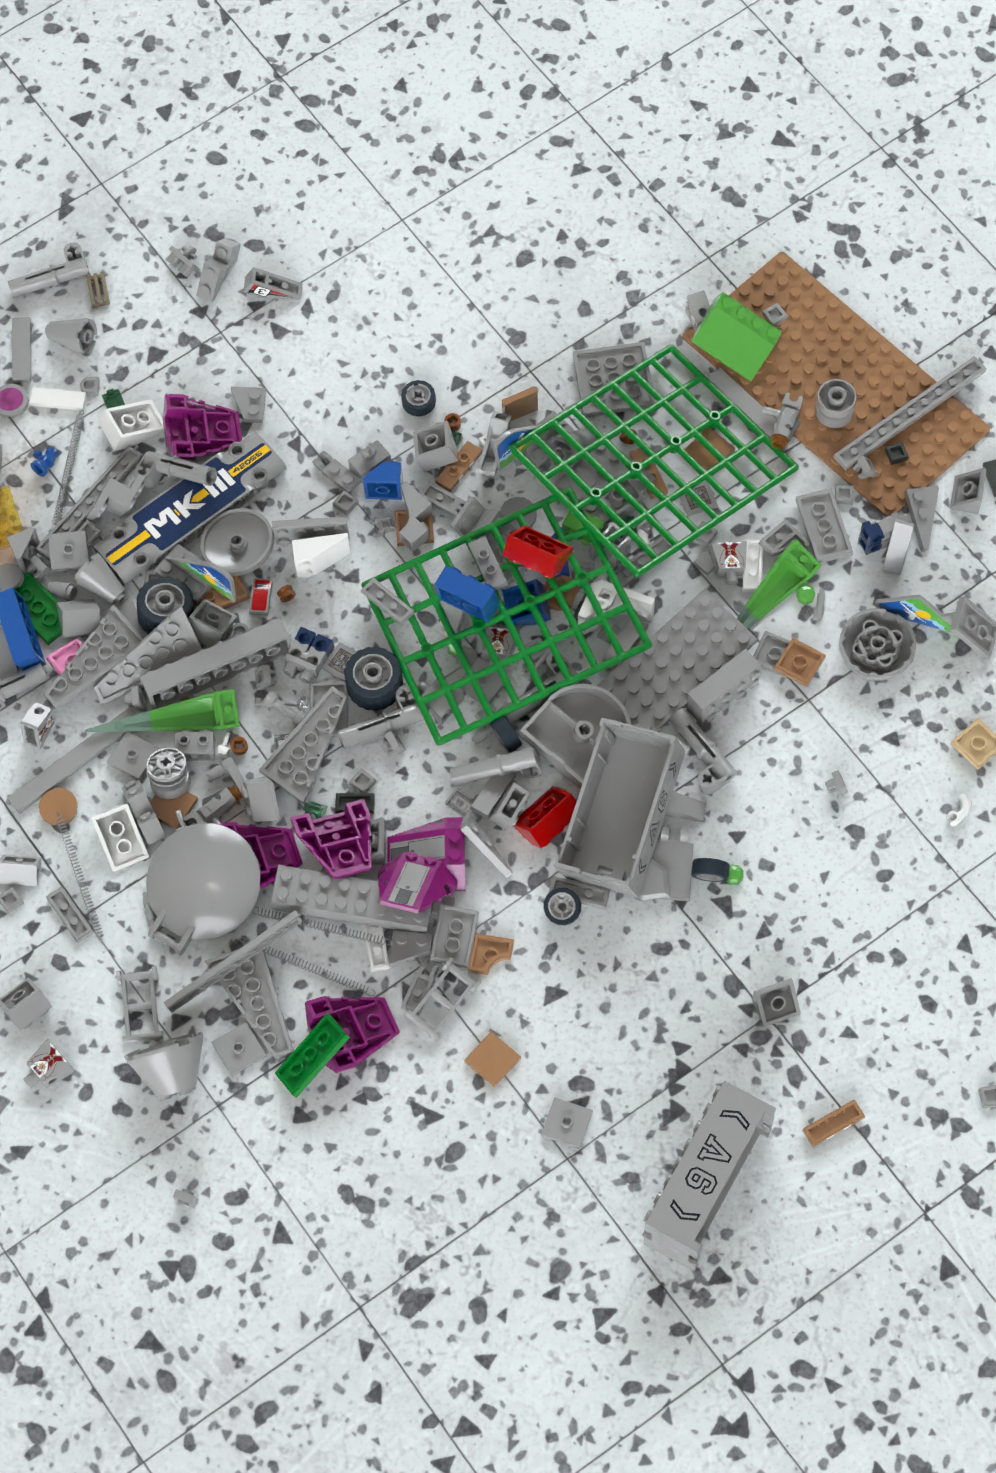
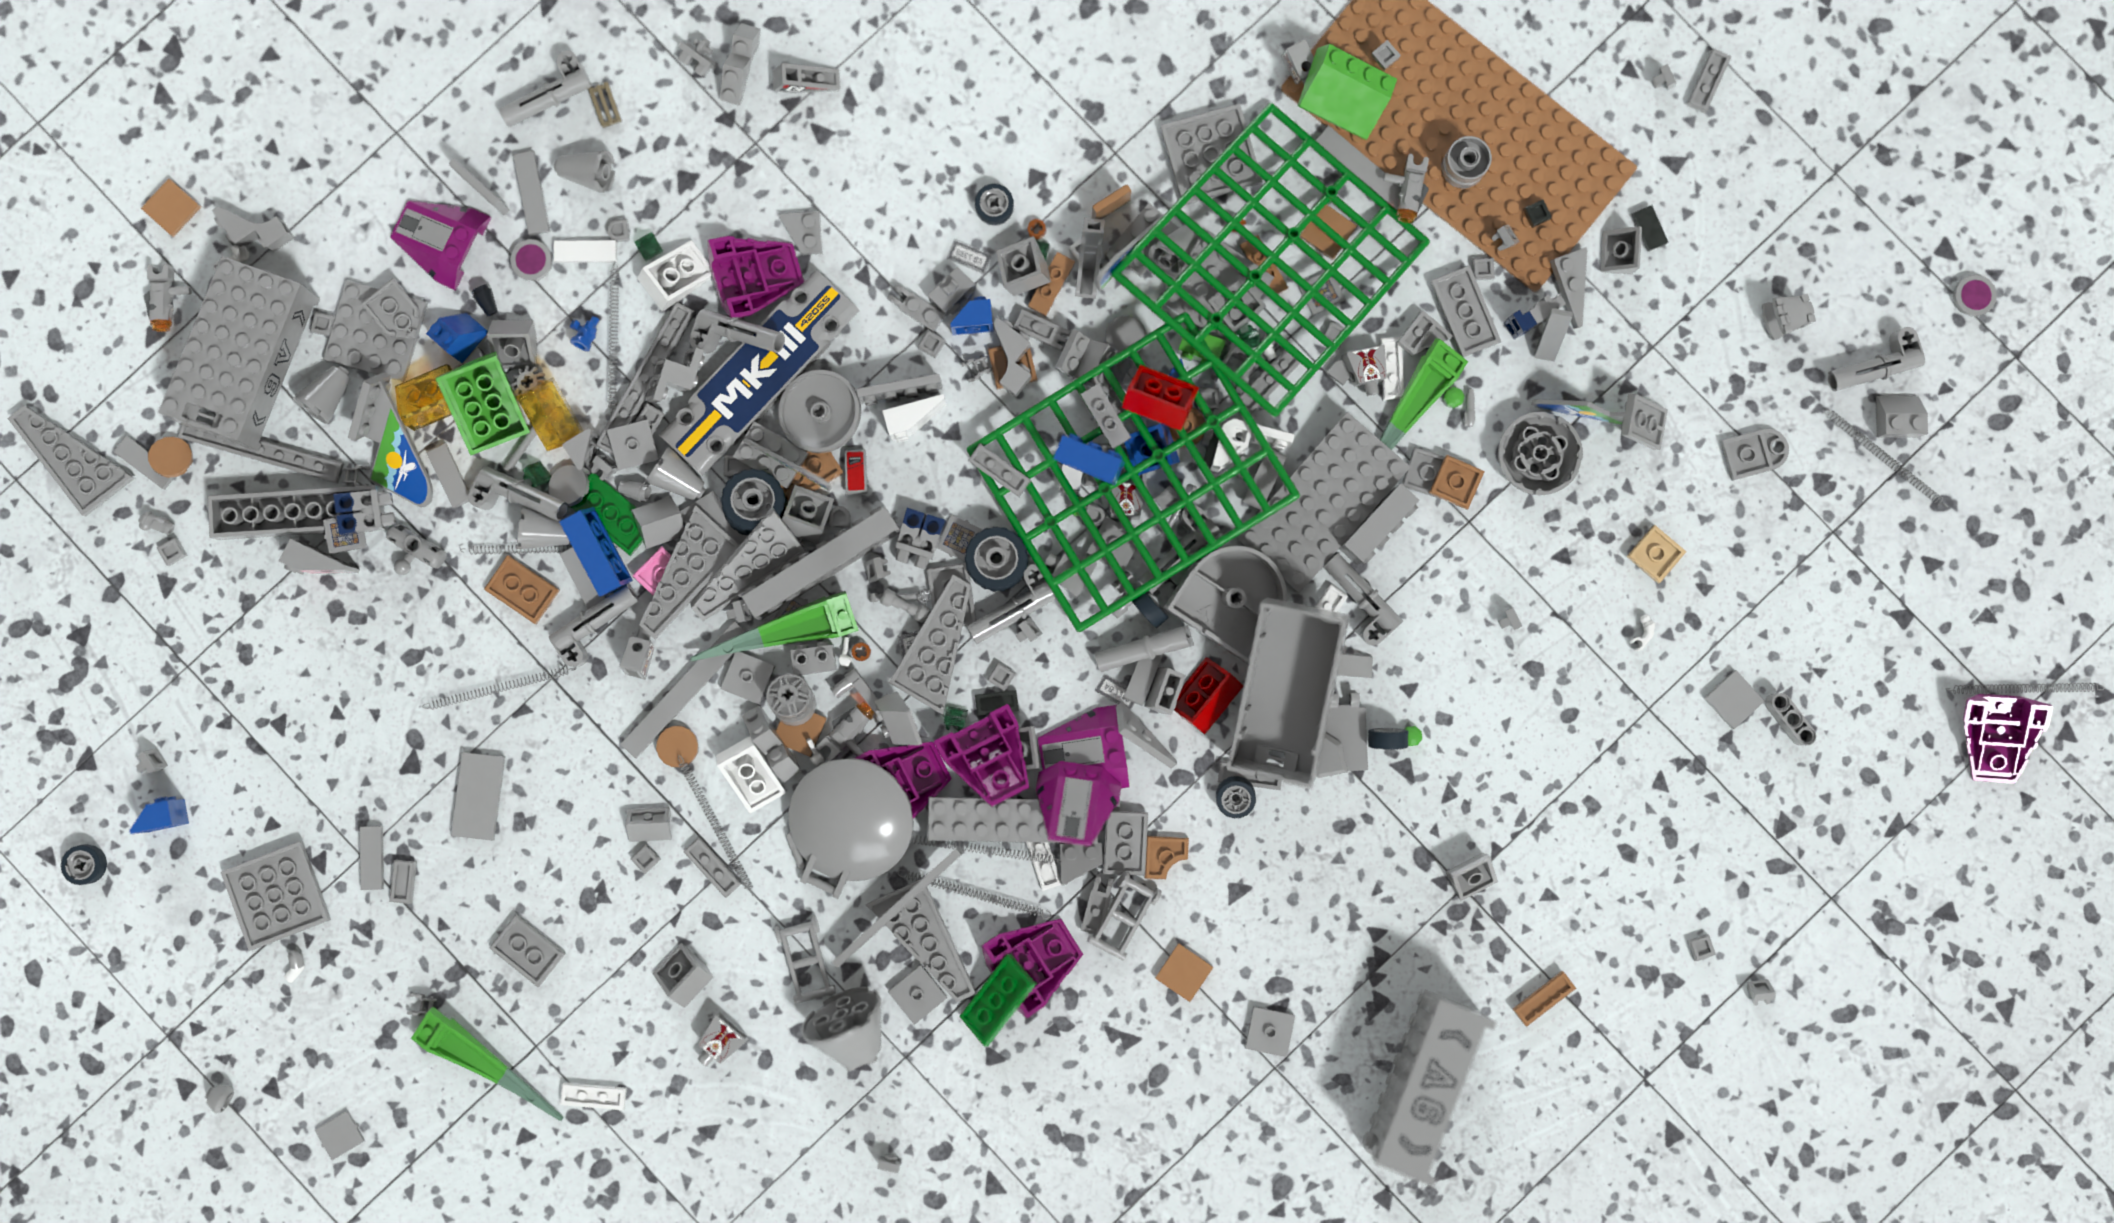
camera: 10 degrees left, 20 degrees up
(286, 593) = (883, 465): dark orange bush -> none
(390, 437) = (969, 256): none -> clear tile
(910, 413) = (1549, 161): light grey plate -> none

